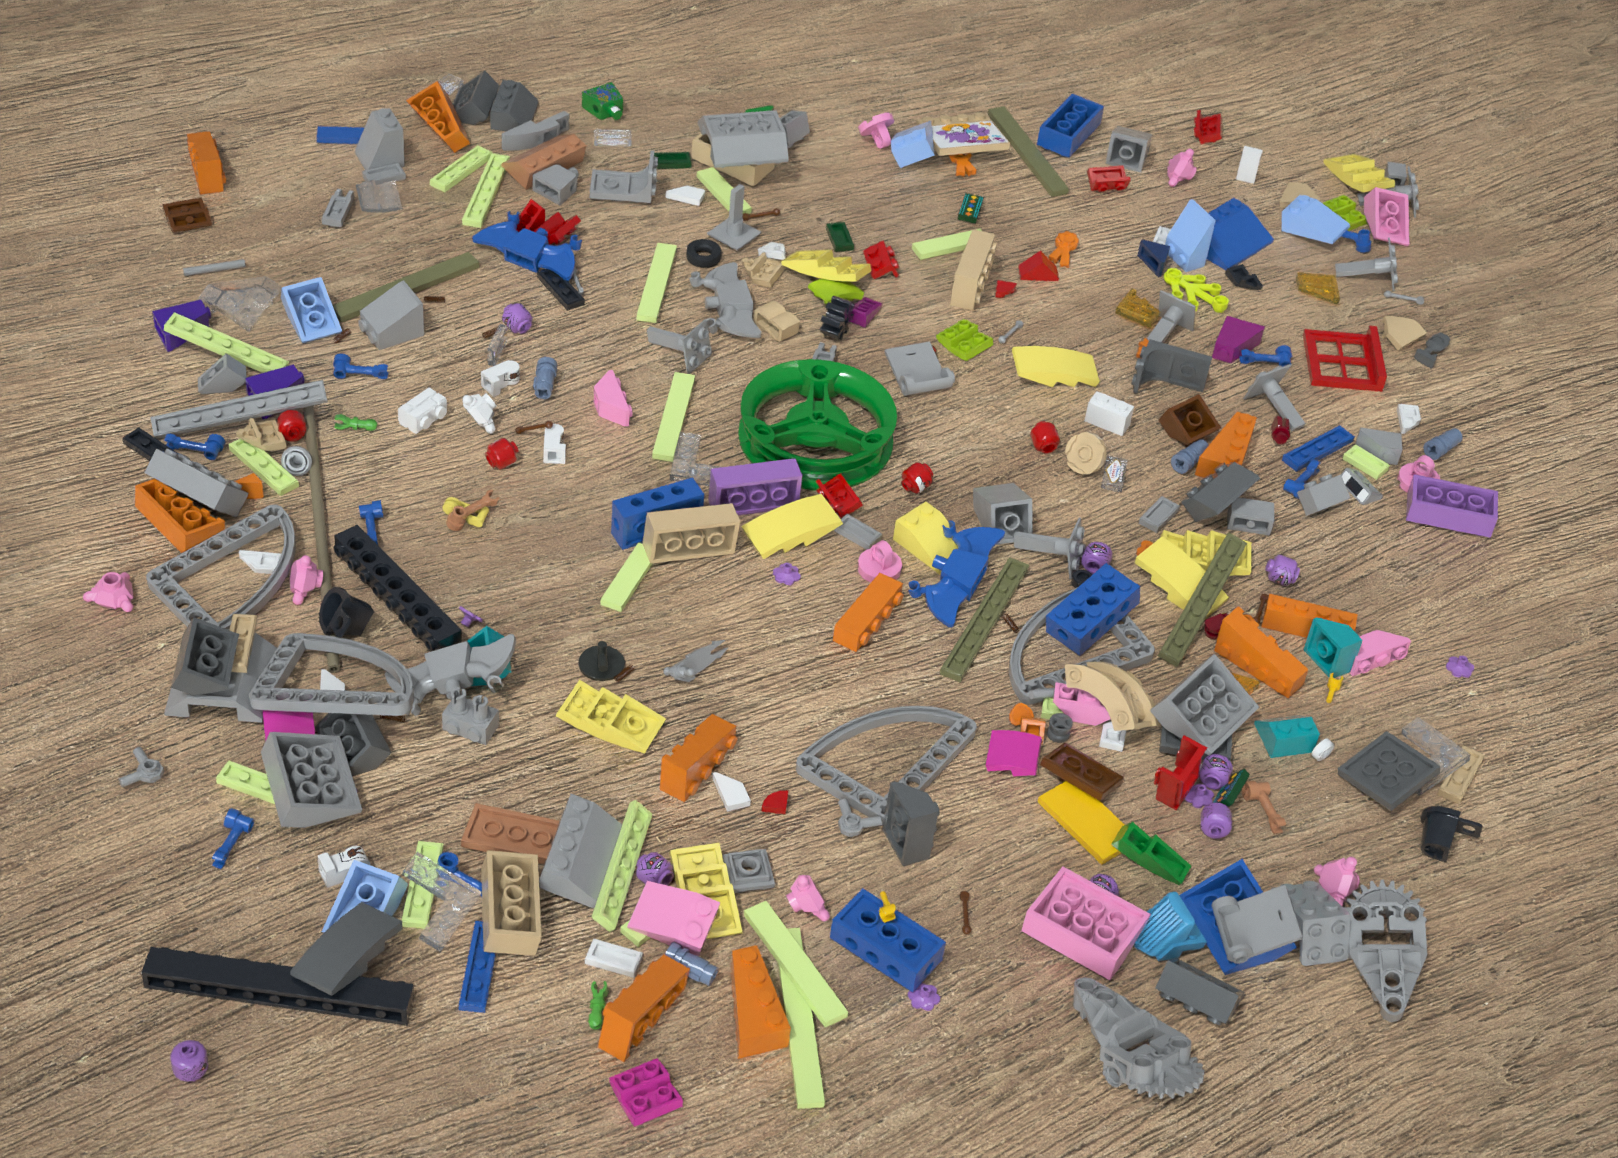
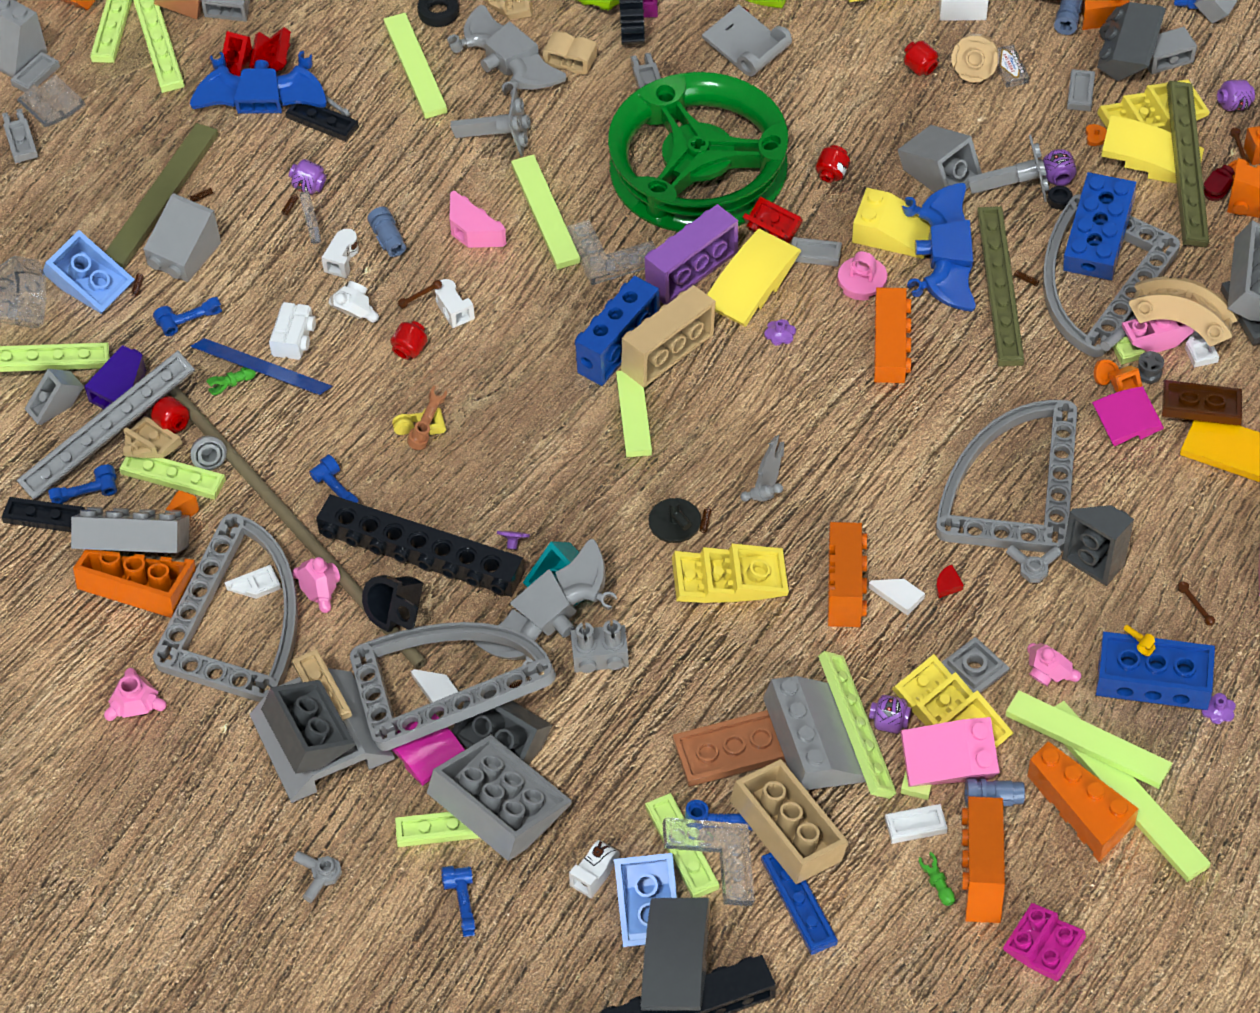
camera: 20 degrees left, 10 degrees up
(383, 424) = (261, 366): none -> blue sticker

